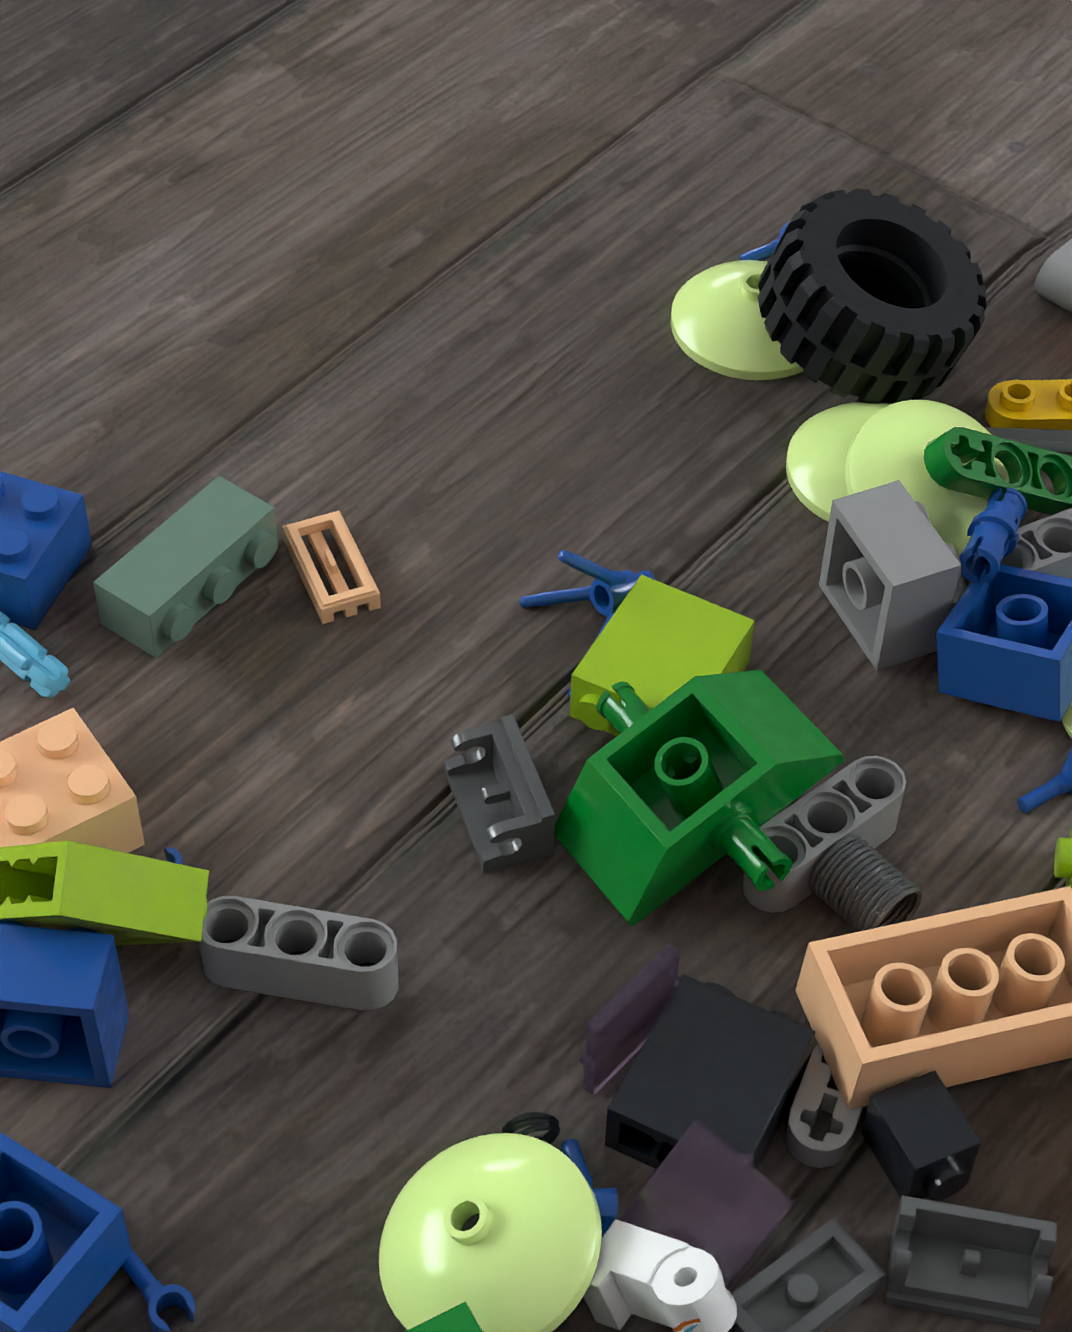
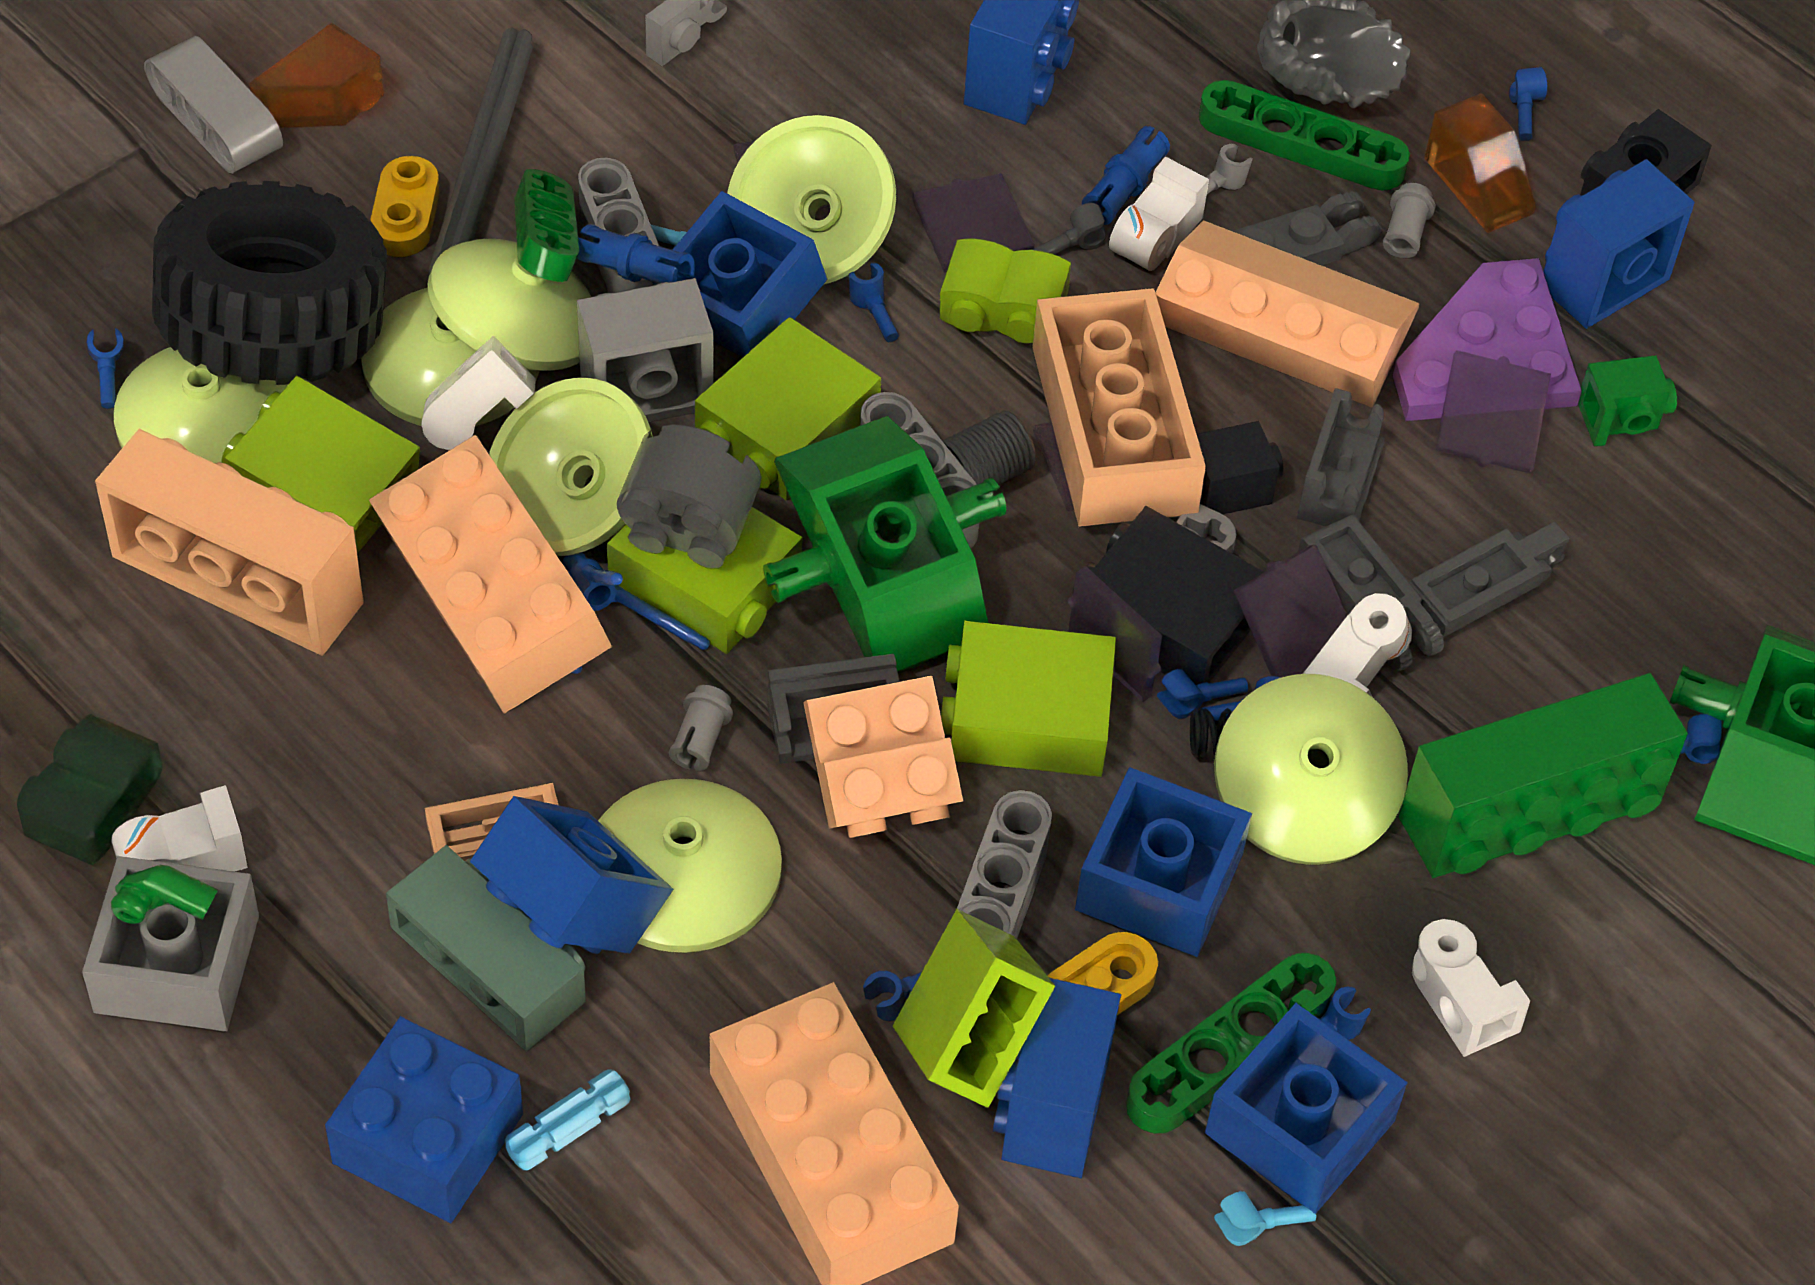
camera: 85 degrees left, 5 degrees up
(135, 1189) = (1224, 1035): none -> green beam
(163, 362) = (173, 962): none -> light grey brick
(178, 319) = (157, 887): none -> green arm
(190, 1059) = (1114, 952): none -> yellow plate
(239, 588) = (569, 877): none -> blue brick
(275, 359) = (191, 836): none -> white leg
(310, 709) = (718, 879): none -> yellowish green dish
(324, 303) = (89, 789): none -> clear green brick
(329, 1090) = (1162, 861): none -> blue brick
(432, 829) = (882, 756): none -> light nougat plate
(462, 692) = (705, 714): none -> light grey pin
(540, 959) = (1030, 698): none -> lime brick
(579, 329) = (231, 541): none -> light nougat brick
(584, 1122) = (1184, 696): none -> blue hand
(594, 496) = (491, 574): none -> light nougat brick
(675, 593) = (688, 494): none -> dark grey brick
(689, 383) = (323, 455): none -> lime brick
(734, 543) = (559, 442): none -> yellowish green dish
(801, 462) = (472, 392): none -> white leg
(884, 703) = (785, 398): none -> lime brick

